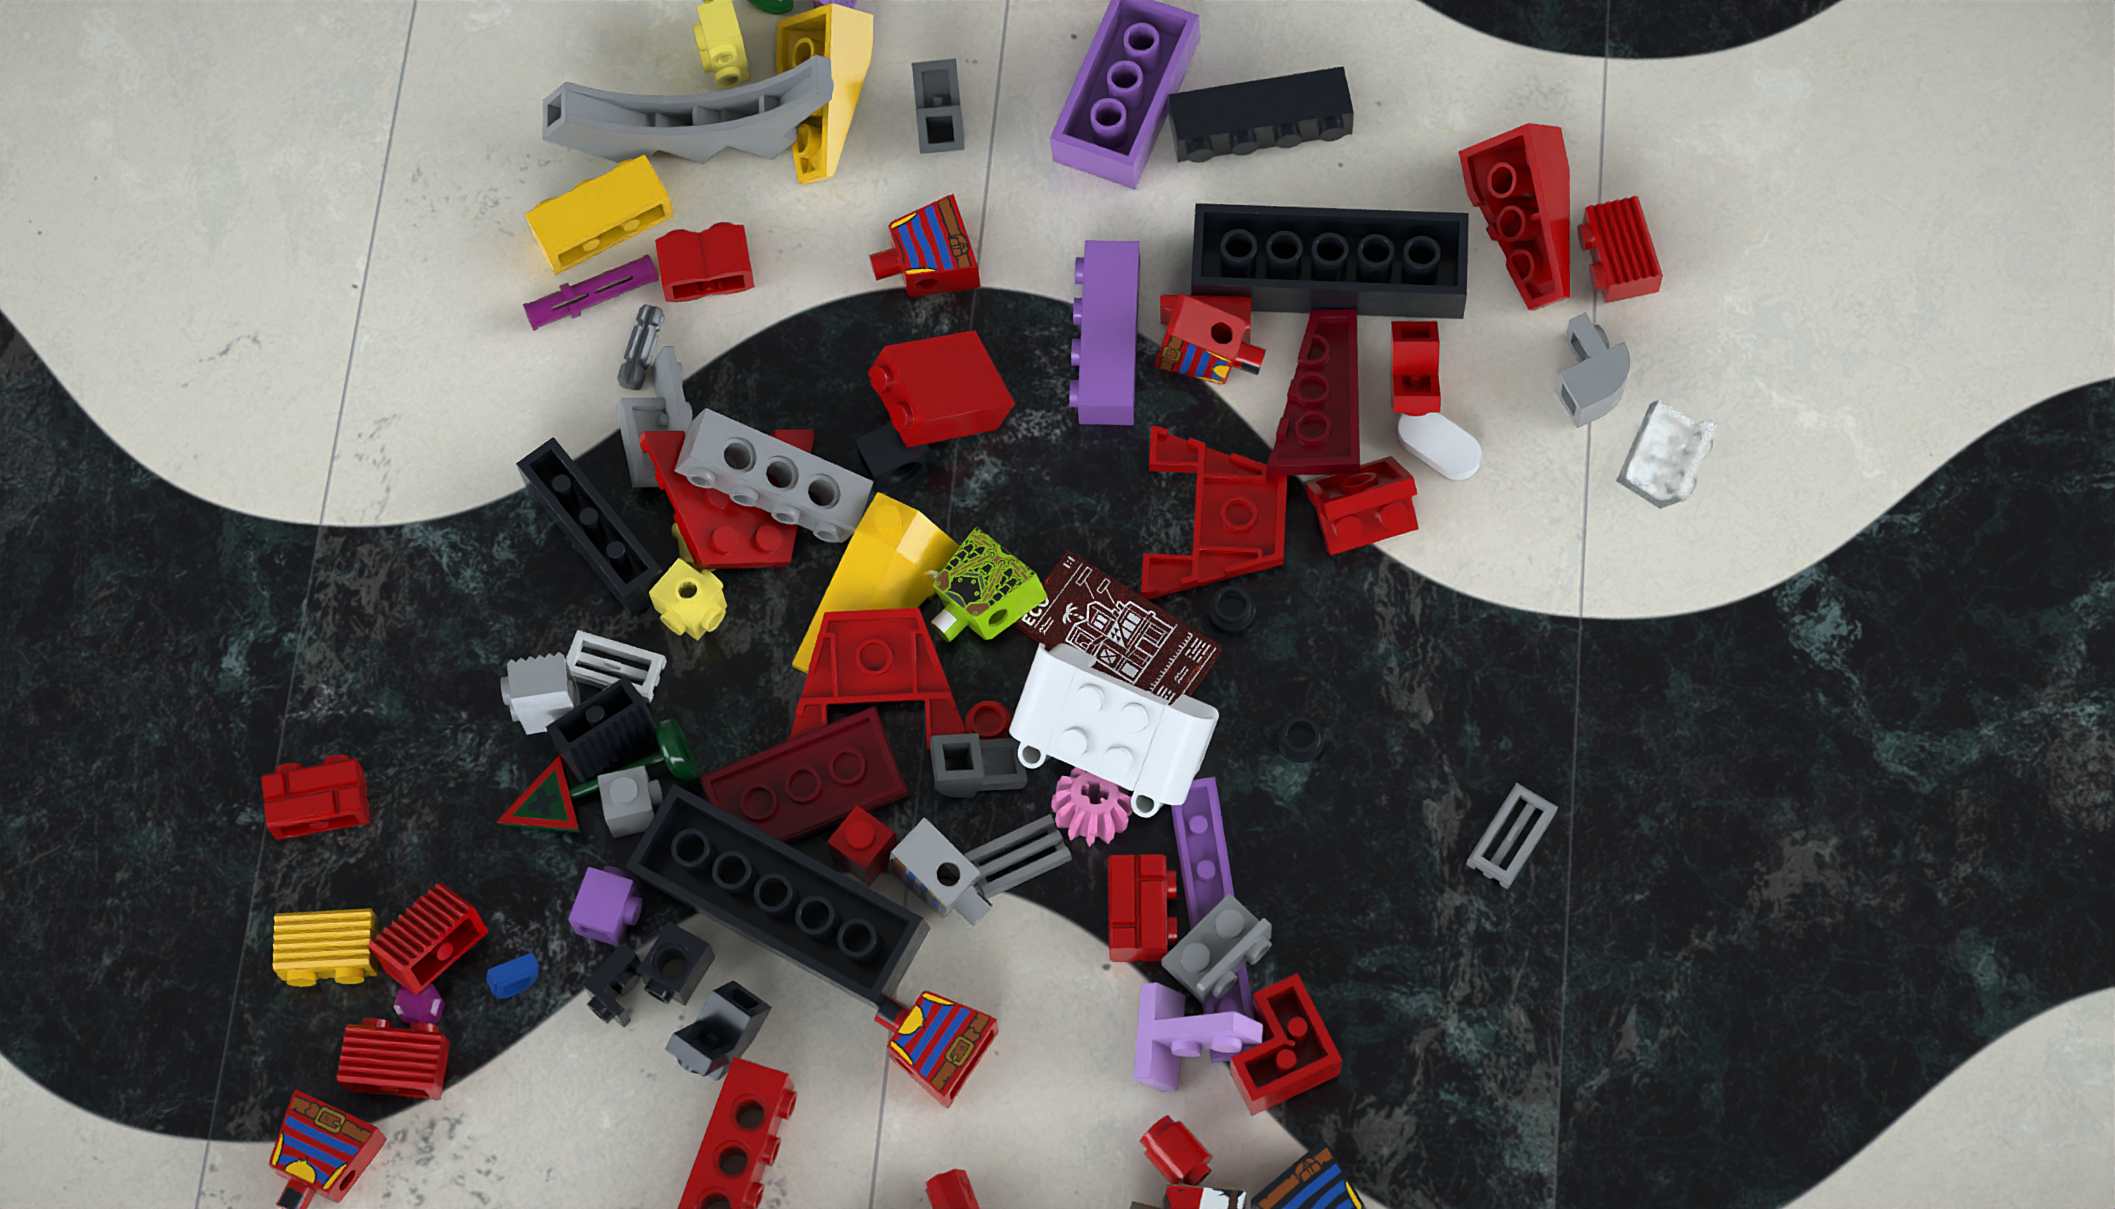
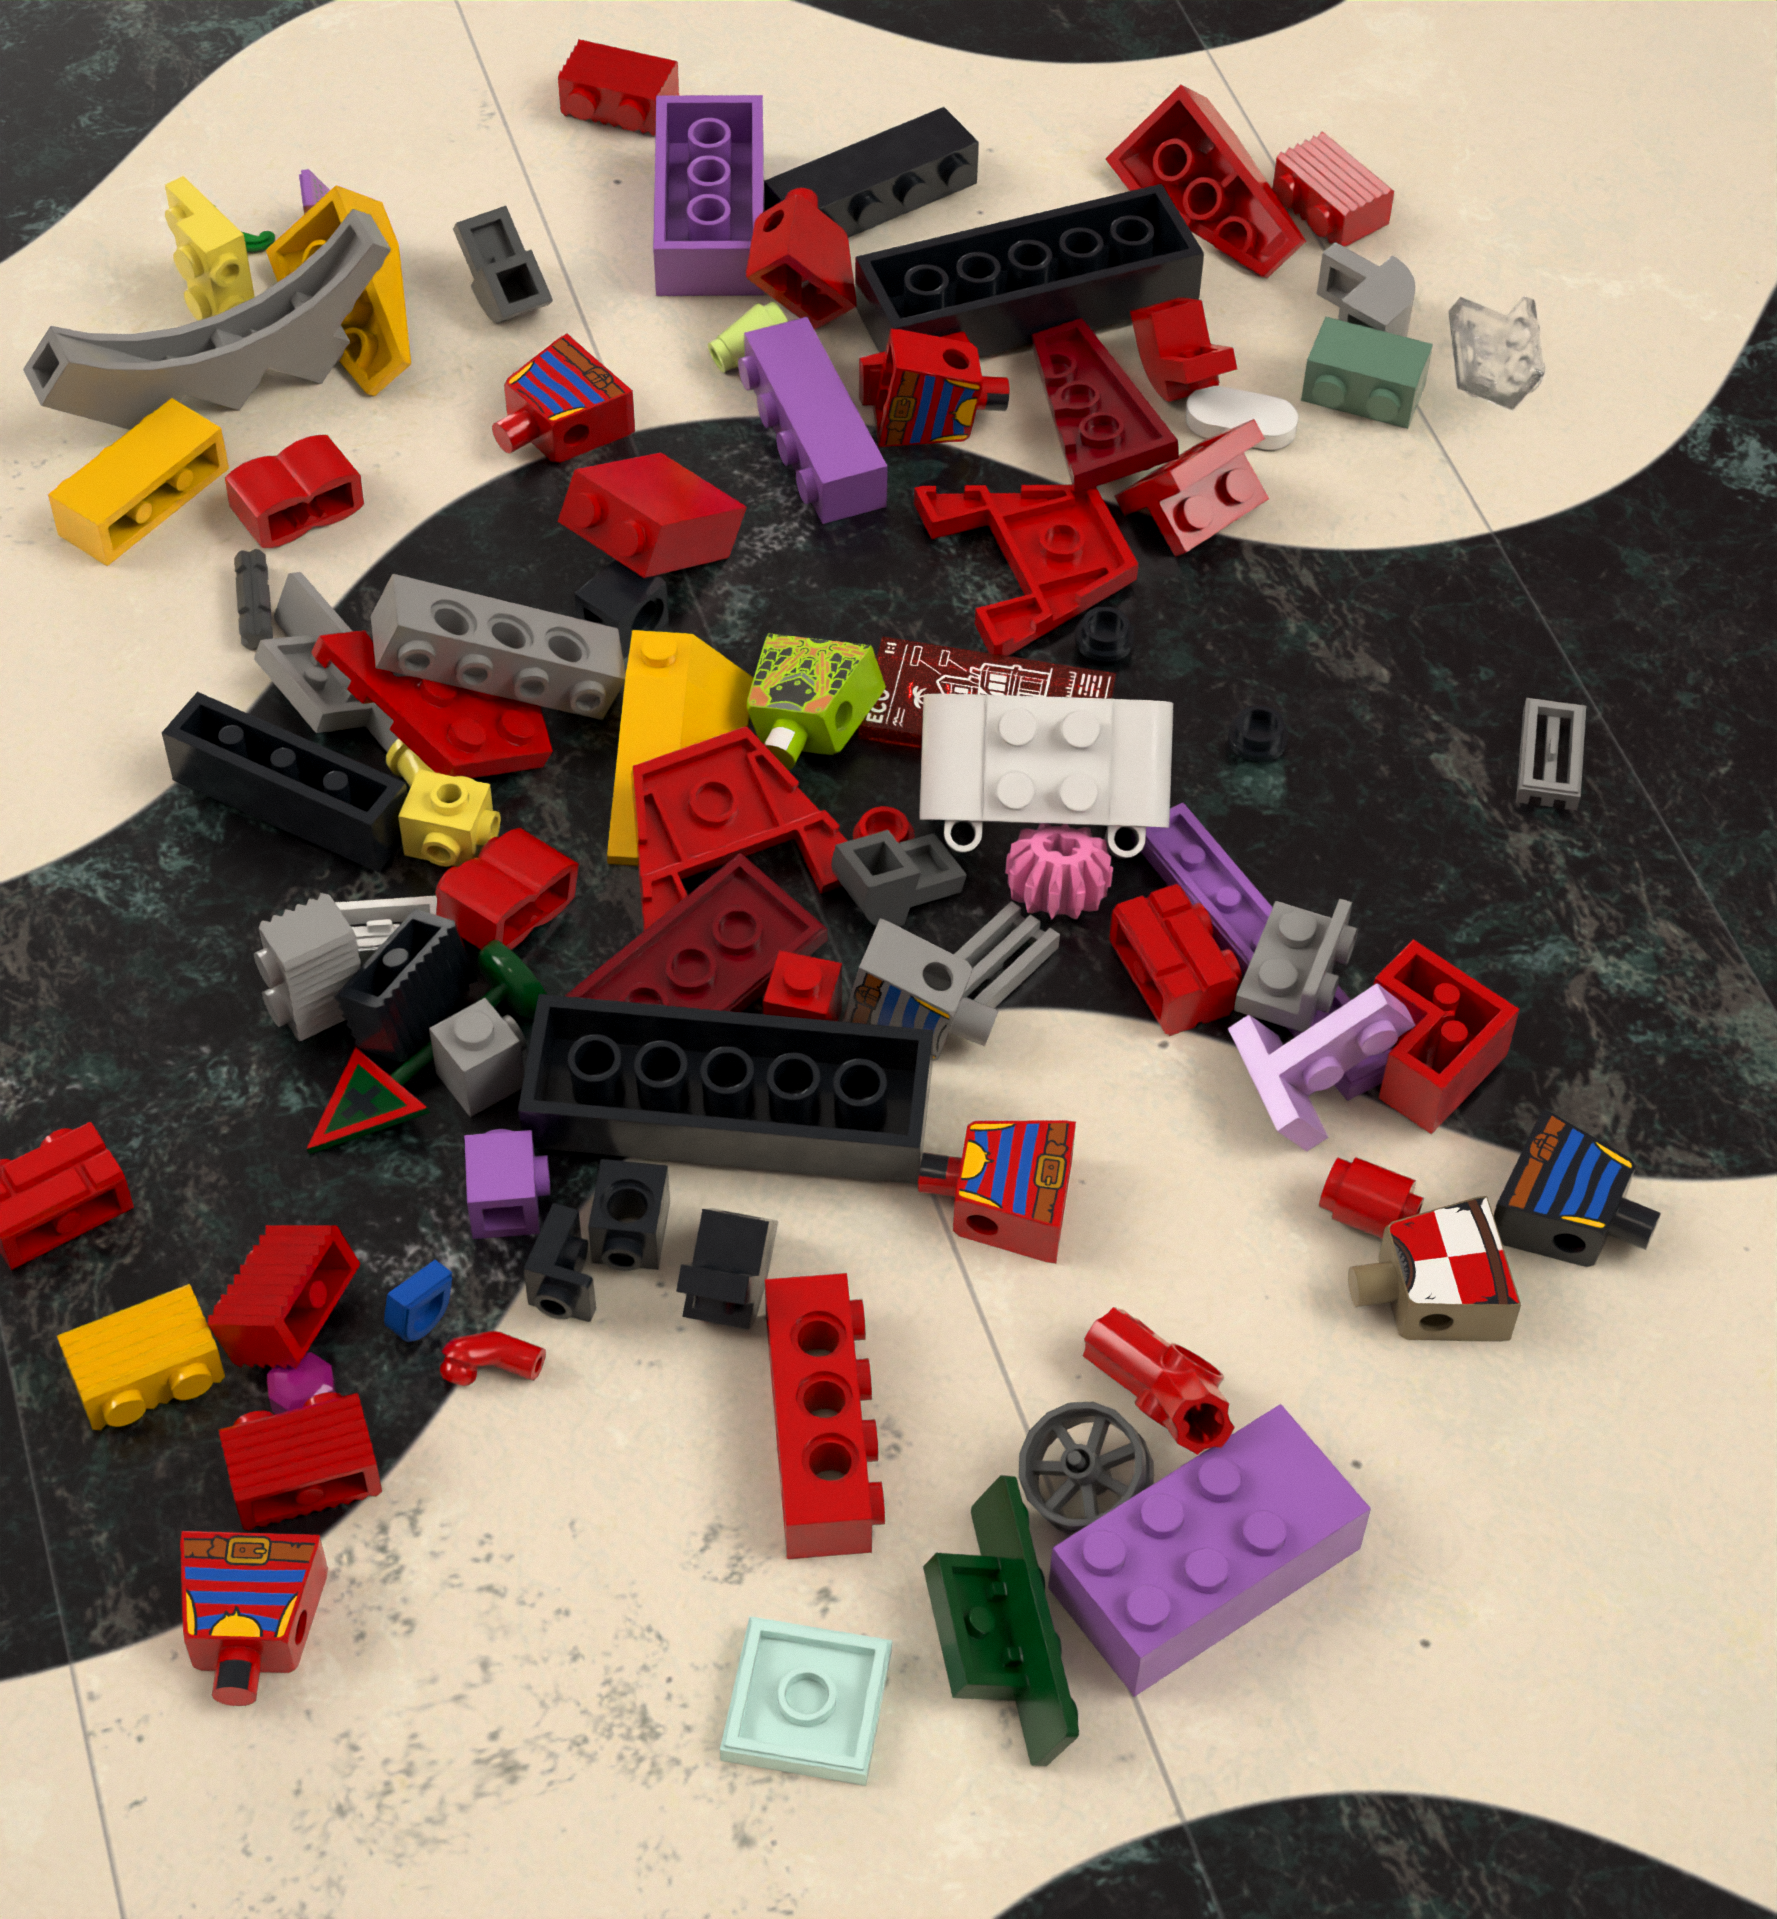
camera: 30 degrees left, 15 degrees down
(540, 312) = (114, 596): magenta pin -> none
(547, 1025) = (490, 1349): none -> red arm
(704, 673) = (507, 889): none -> red brick
(1101, 228) = (730, 343): none -> yellowish green cone
(1160, 183) = (802, 259): none -> red torso
(1552, 440) = (1366, 372): none -> sand green brick

